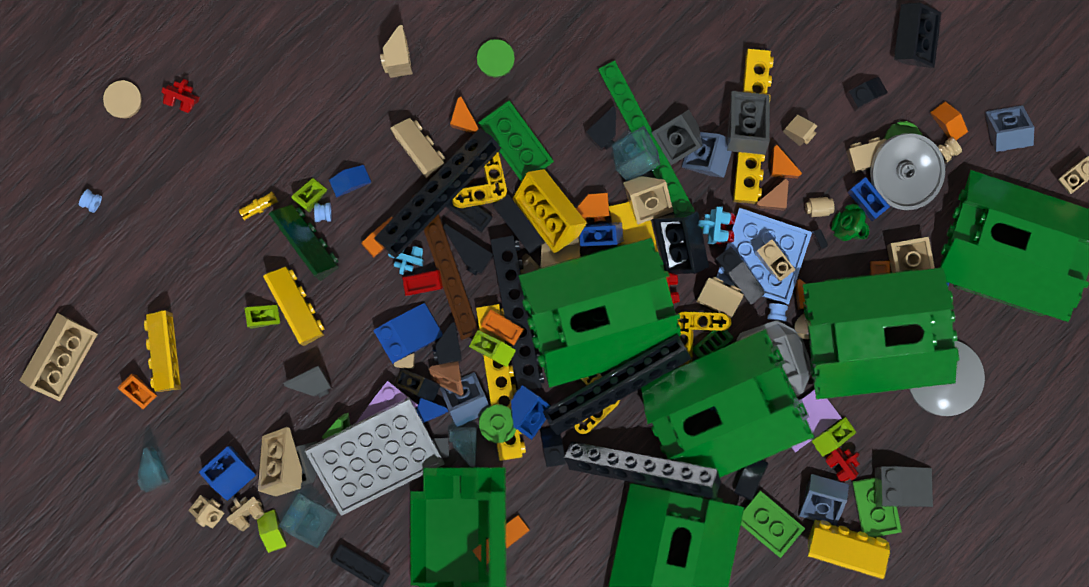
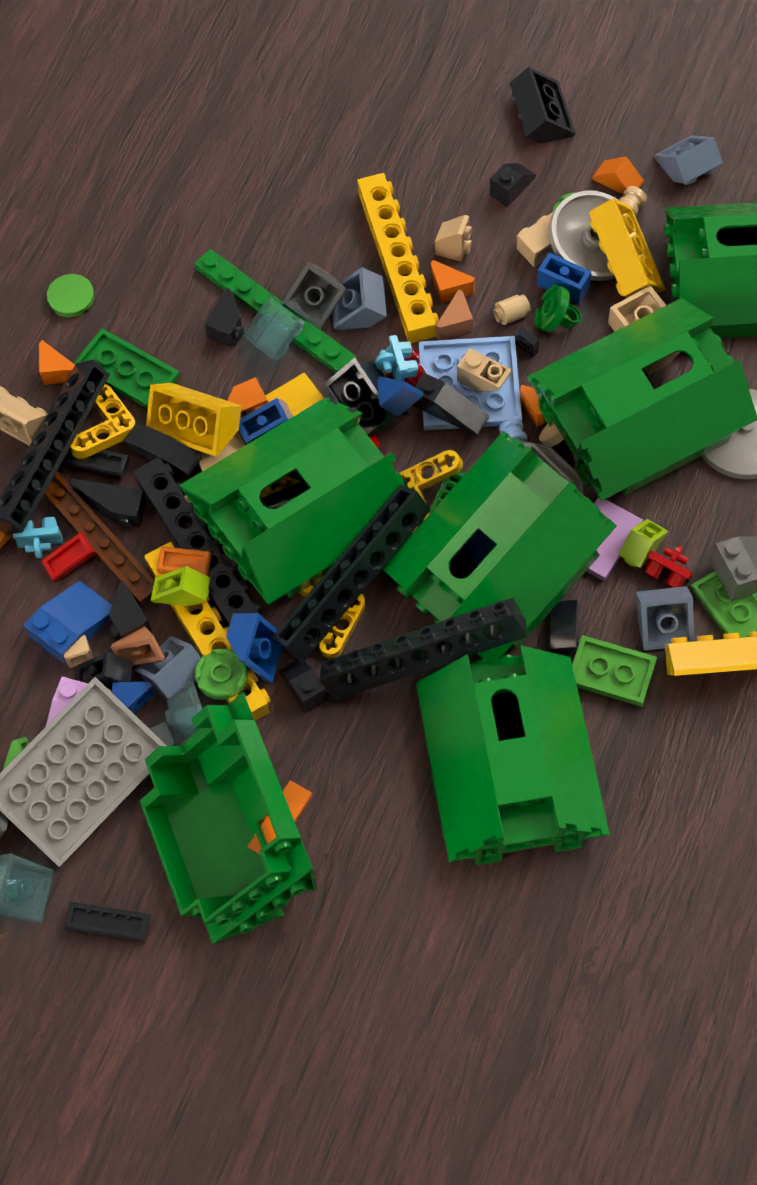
camera: 15 degrees left, 20 degrees down
(648, 198) = (305, 365): tan slope -> none
(702, 257) = (396, 395): none -> blue slope
(720, 297) = (435, 434): tan slope -> none
(749, 123) = (390, 246): dark grey slope -> none
(925, 196) = (625, 248): none -> yellow slope

